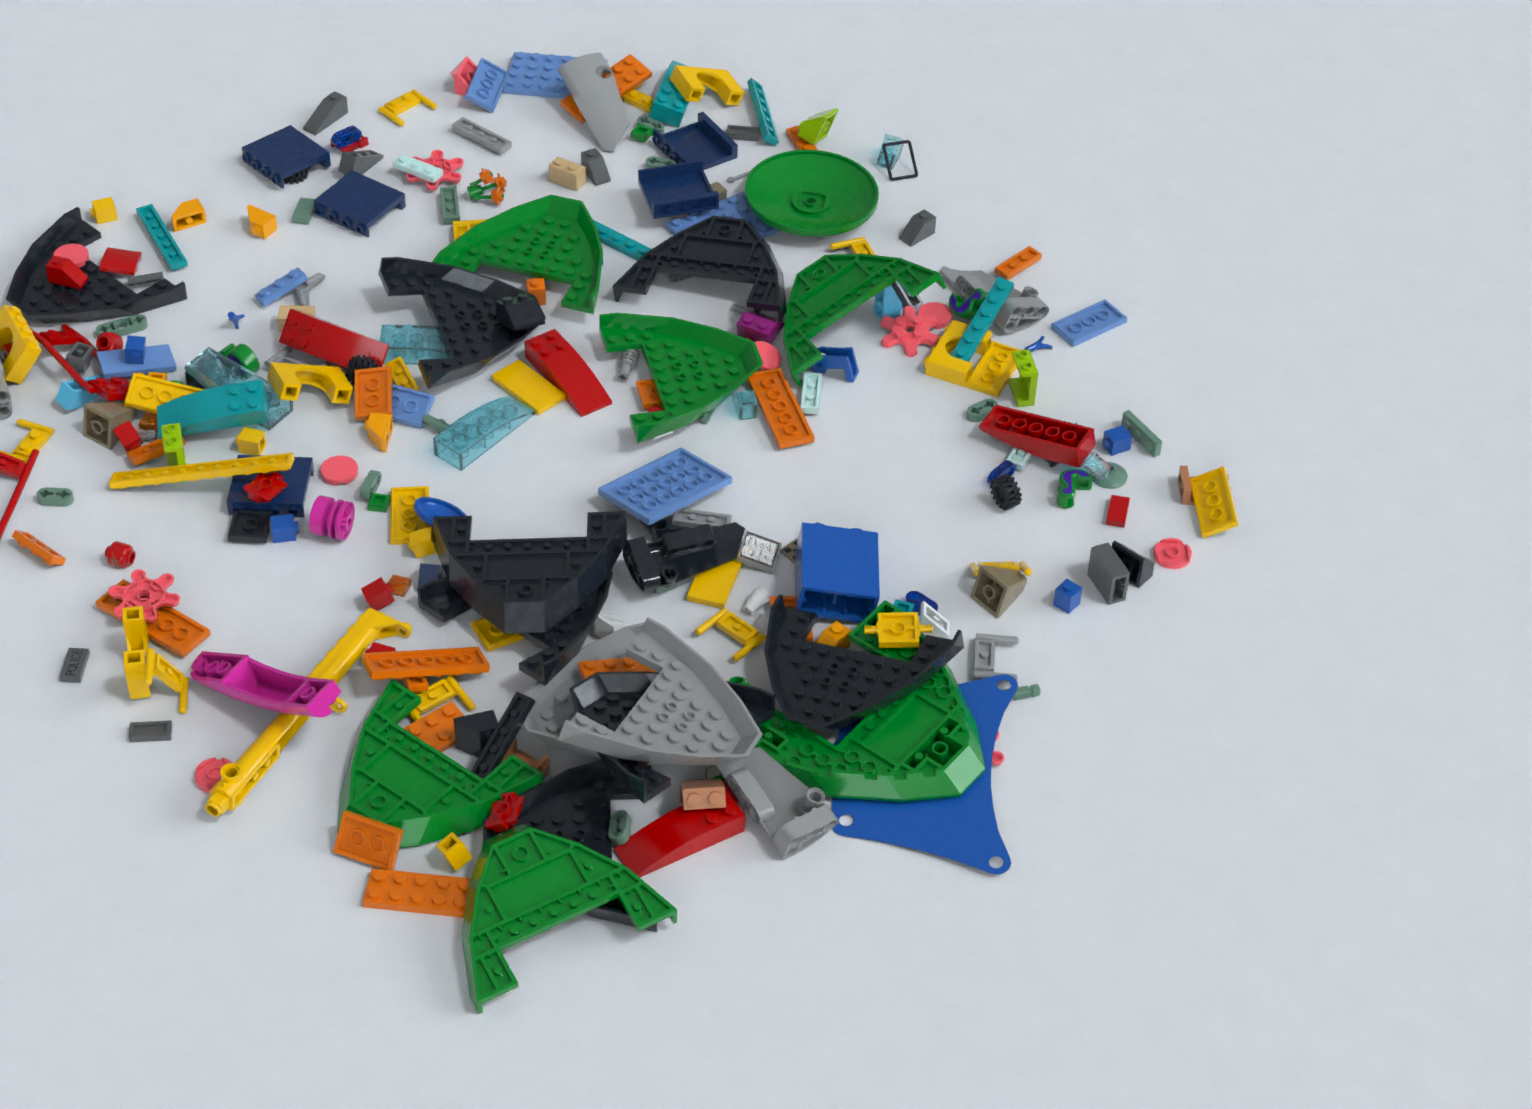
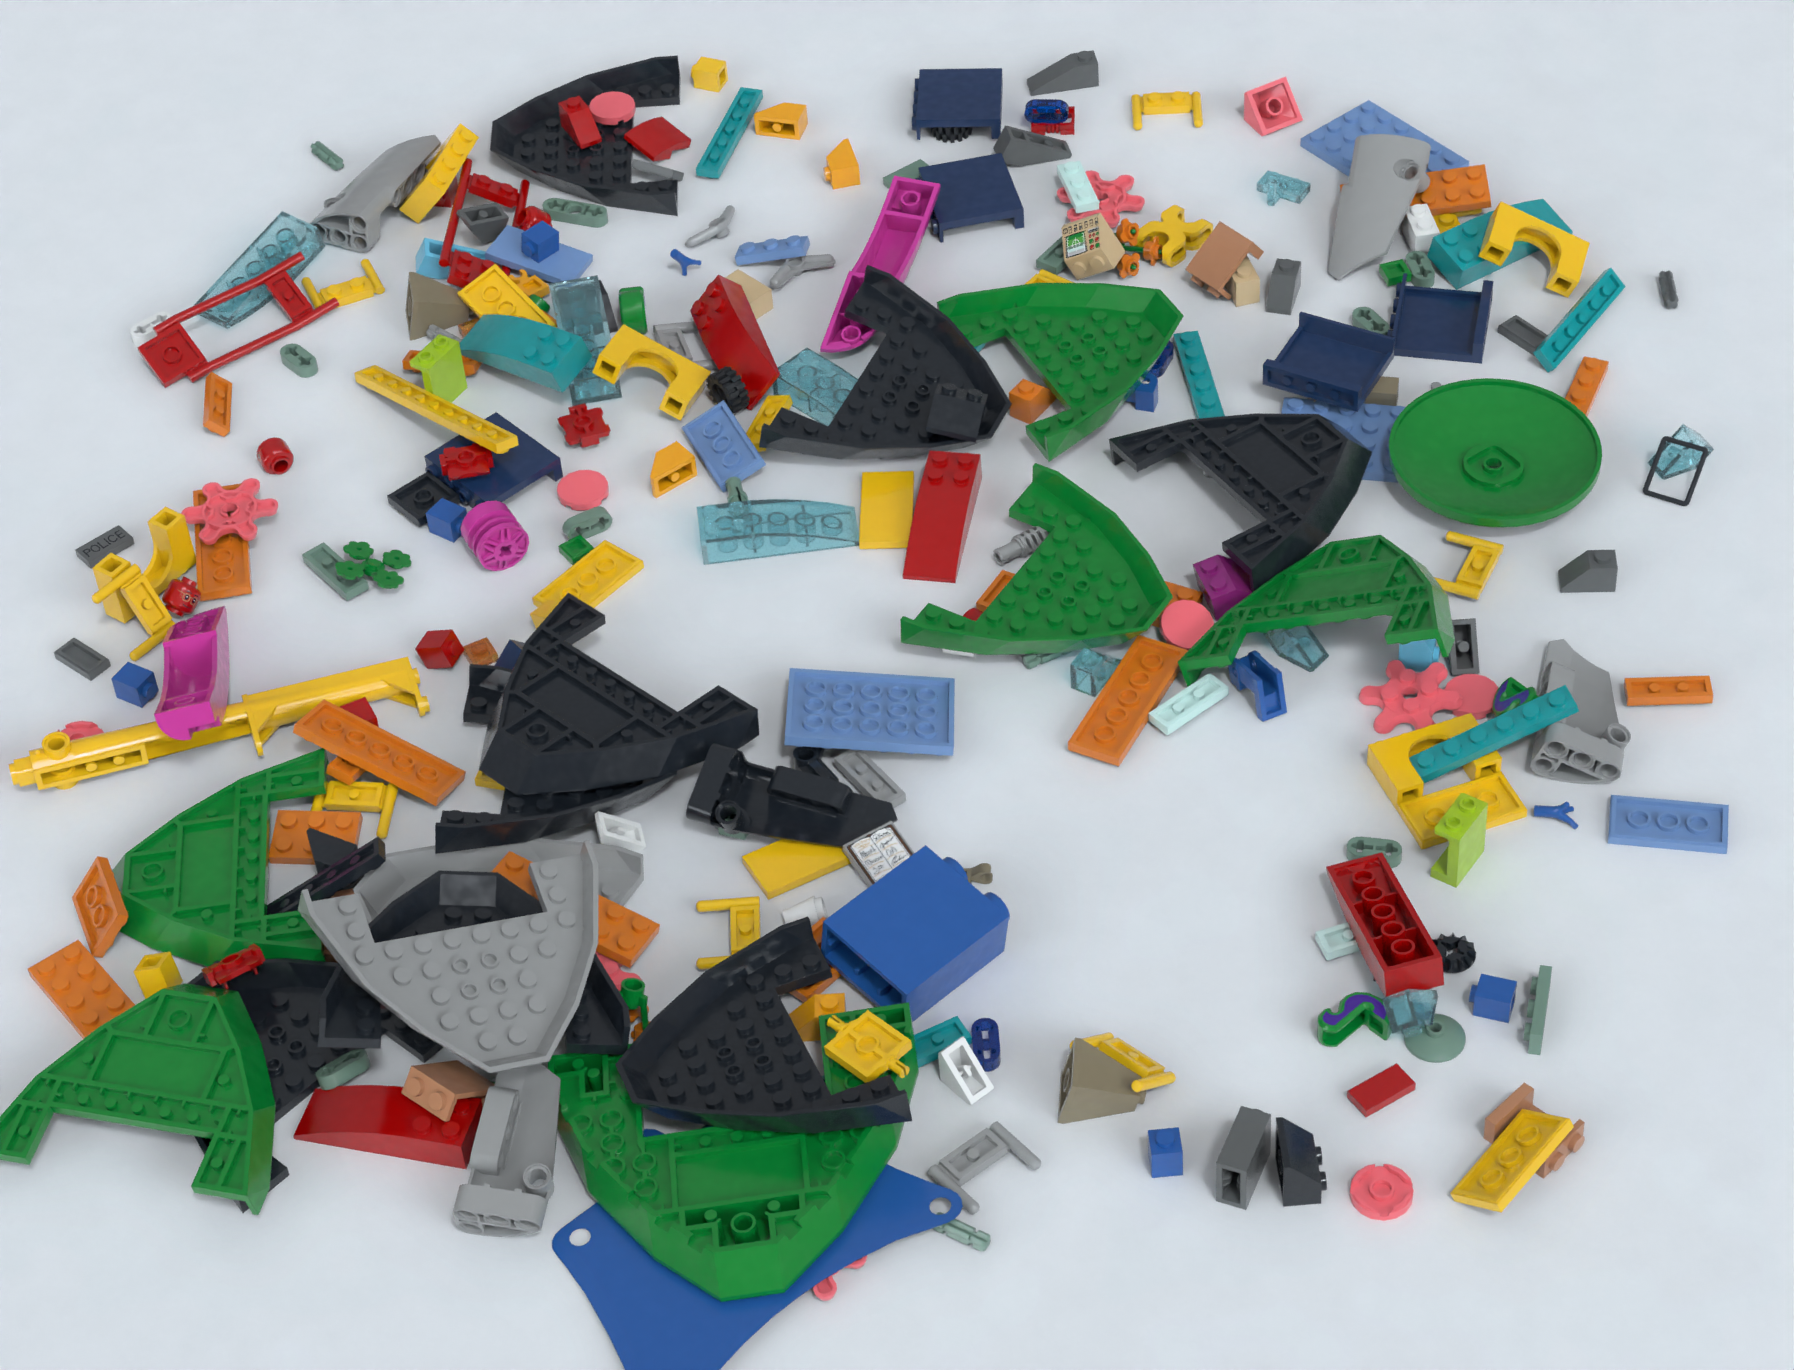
camera: 50 degrees right, 0 degrees up
(128, 436) = (424, 330): red brick -> none
(177, 656) = (181, 596): none -> red head
(212, 722) = (135, 684): none -> blue brick
(227, 291) = (716, 227): none -> light grey piece
(250, 593) = (322, 561): none -> sand green plate
(251, 441) = (535, 407): yellow brick -> none
(274, 577) = (373, 567): none -> green plant
(296, 435) = (584, 425): none -> red piece
(360, 258) = (889, 249): none -> dark pink slope
(373, 392) = (705, 419): orange plate -> none
(429, 507) = (607, 593): blue dish -> none
(473, 194) = (1090, 246): none -> tan slope
(481, 135) = (1204, 184): light grey plate -> none
(486, 85) = (1280, 125): medium blue tile -> none
(505, 167) = (1175, 234): none -> yellow piece
(524, 118) = (1283, 187): none -> clear light blue plate
(553, 167) = (1220, 258): none -> nougat panel
(634, 105) = (1419, 227): none -> white brick
(784, 77) = (1668, 289): none -> dark grey axle
(817, 126) = (1614, 372): lime slope -> none
(830, 338) = (1298, 646): none -> clear light blue slope
(1005, 492) = (1253, 971): black tyre -> none
(1006, 467) = (1289, 946): clear blue beam -> none

